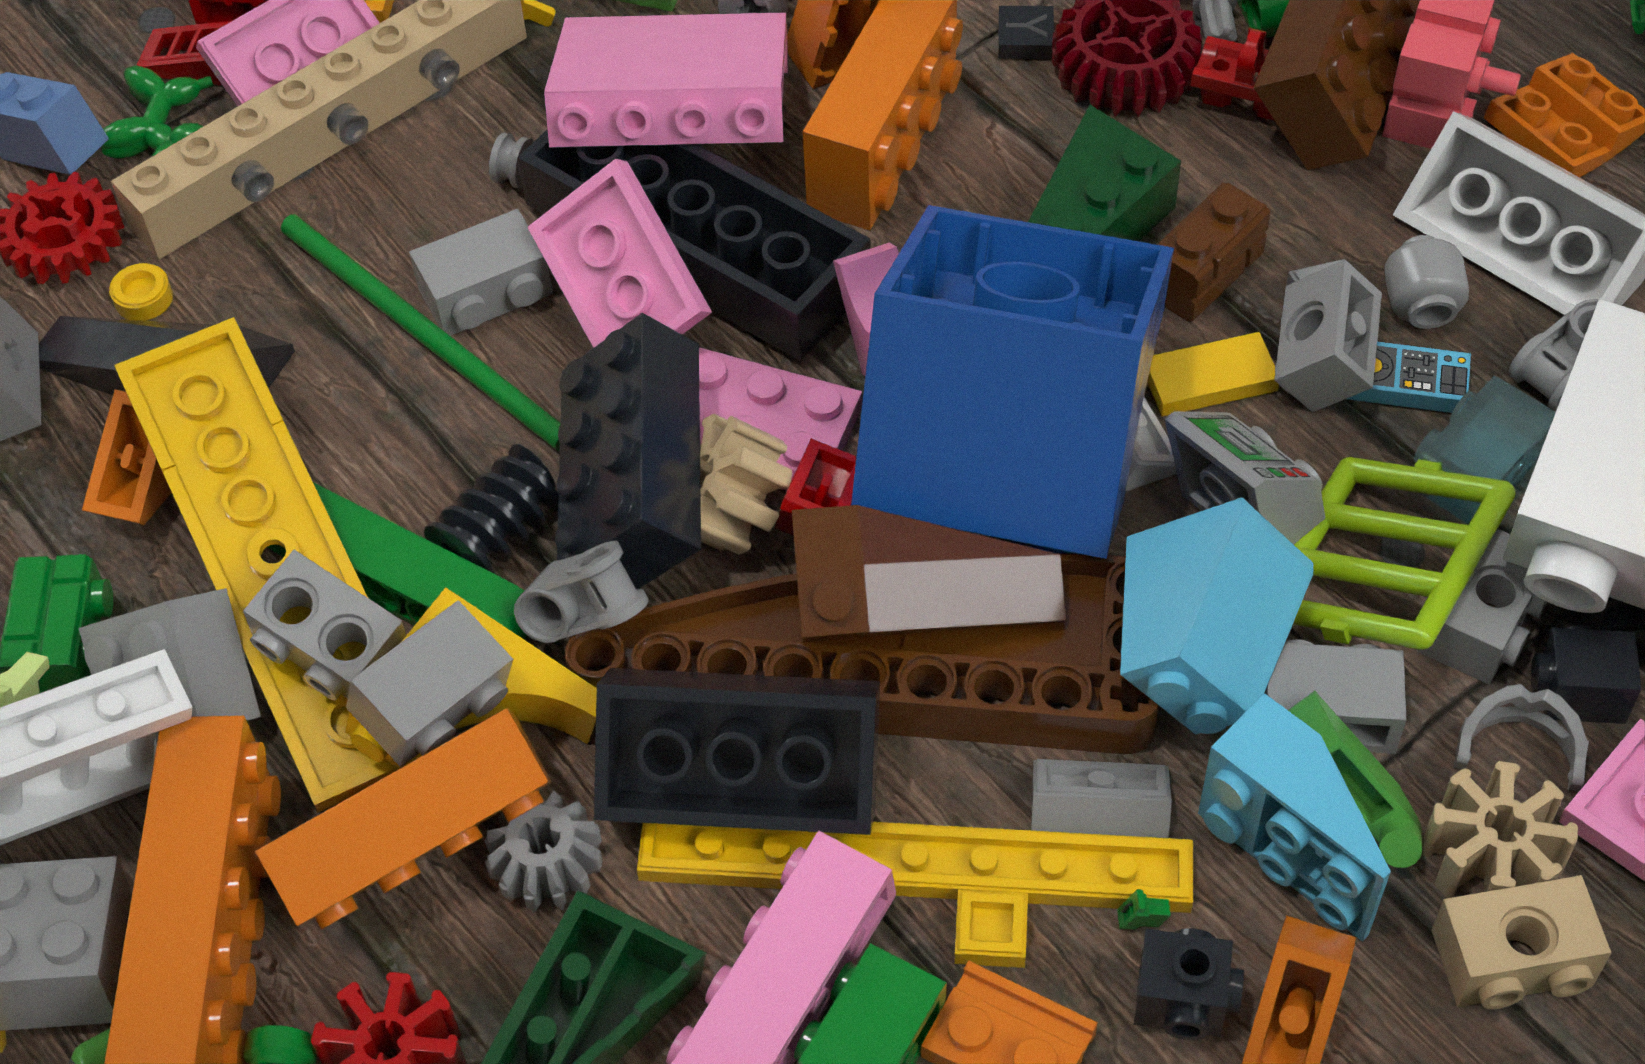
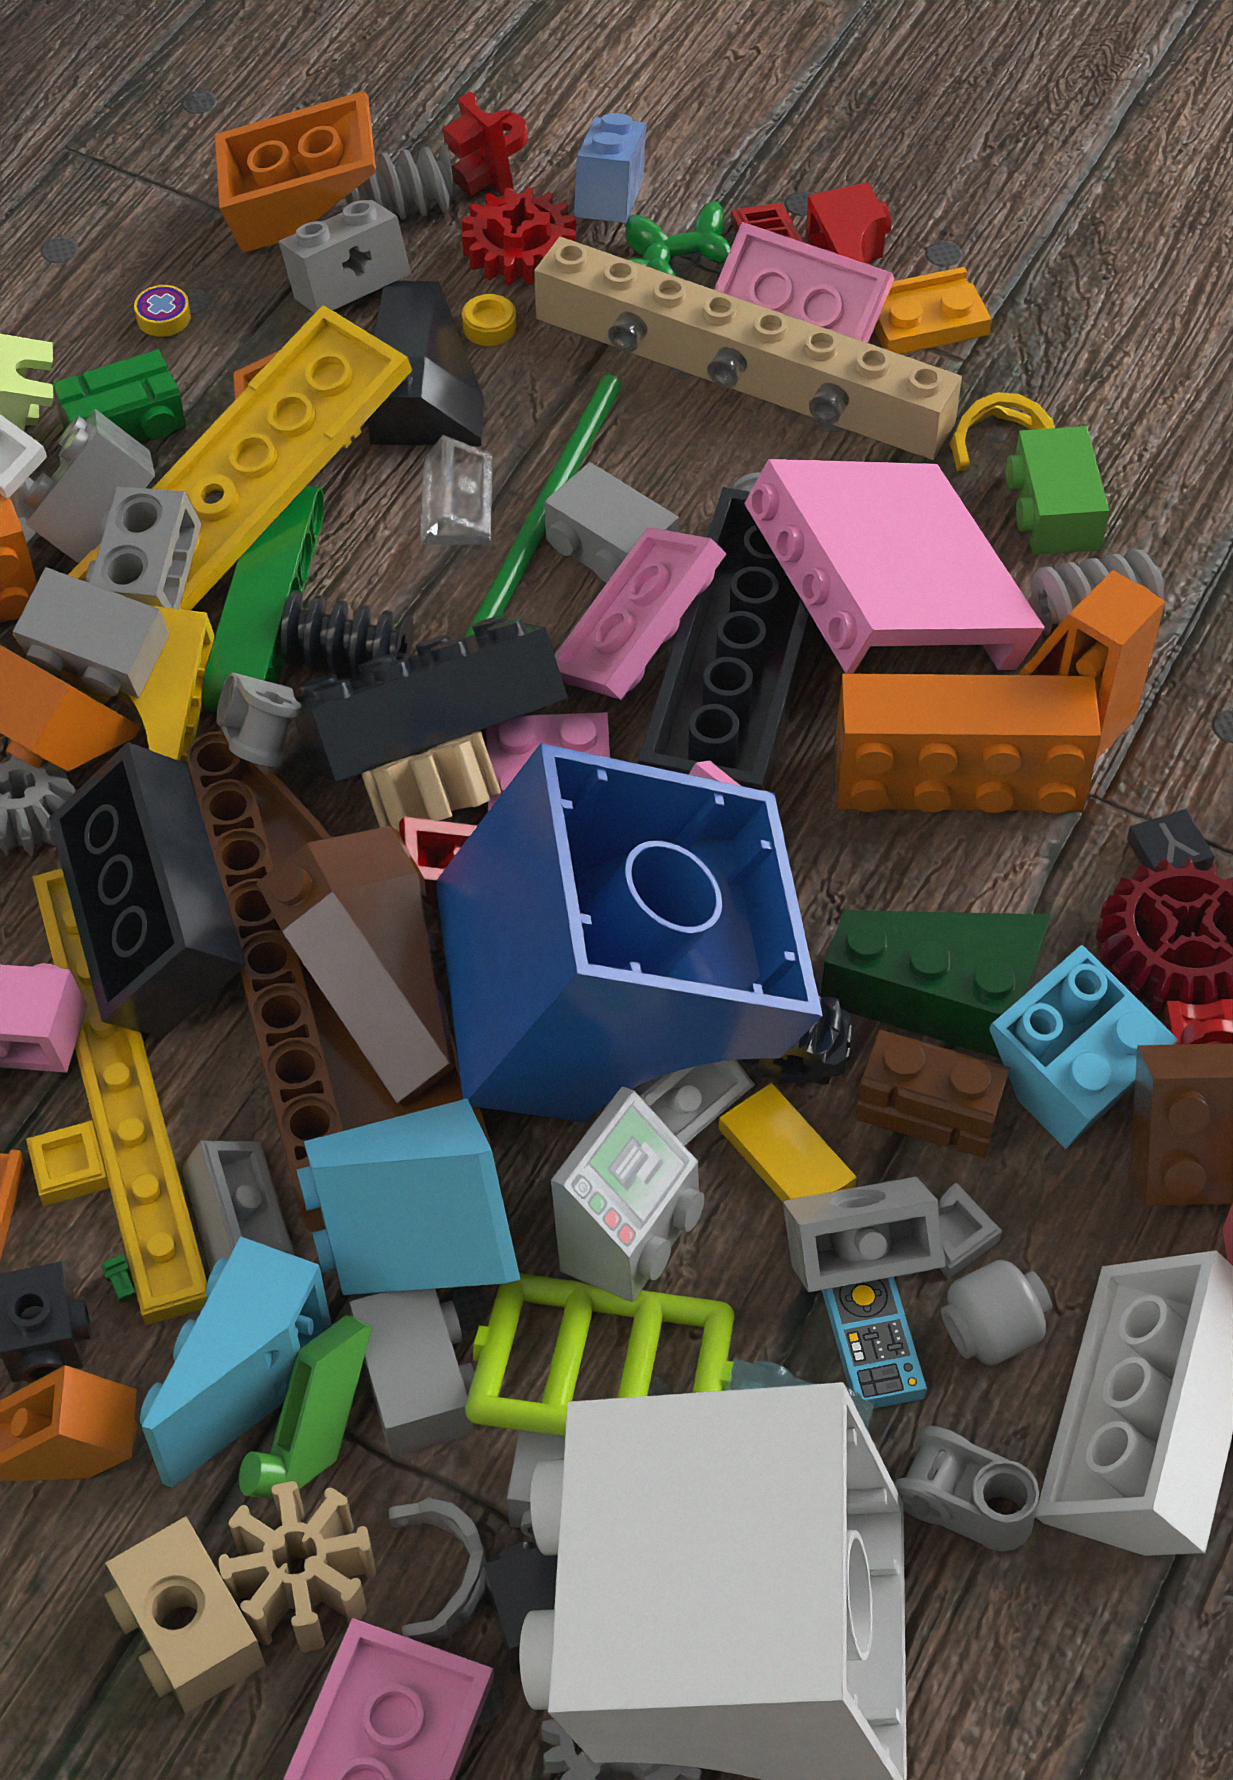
camera: 65 degrees right, 0 degrees up
(349, 387) = (456, 495): none -> clear slope
(1222, 133) = (1075, 1044): none -> medium azure slope

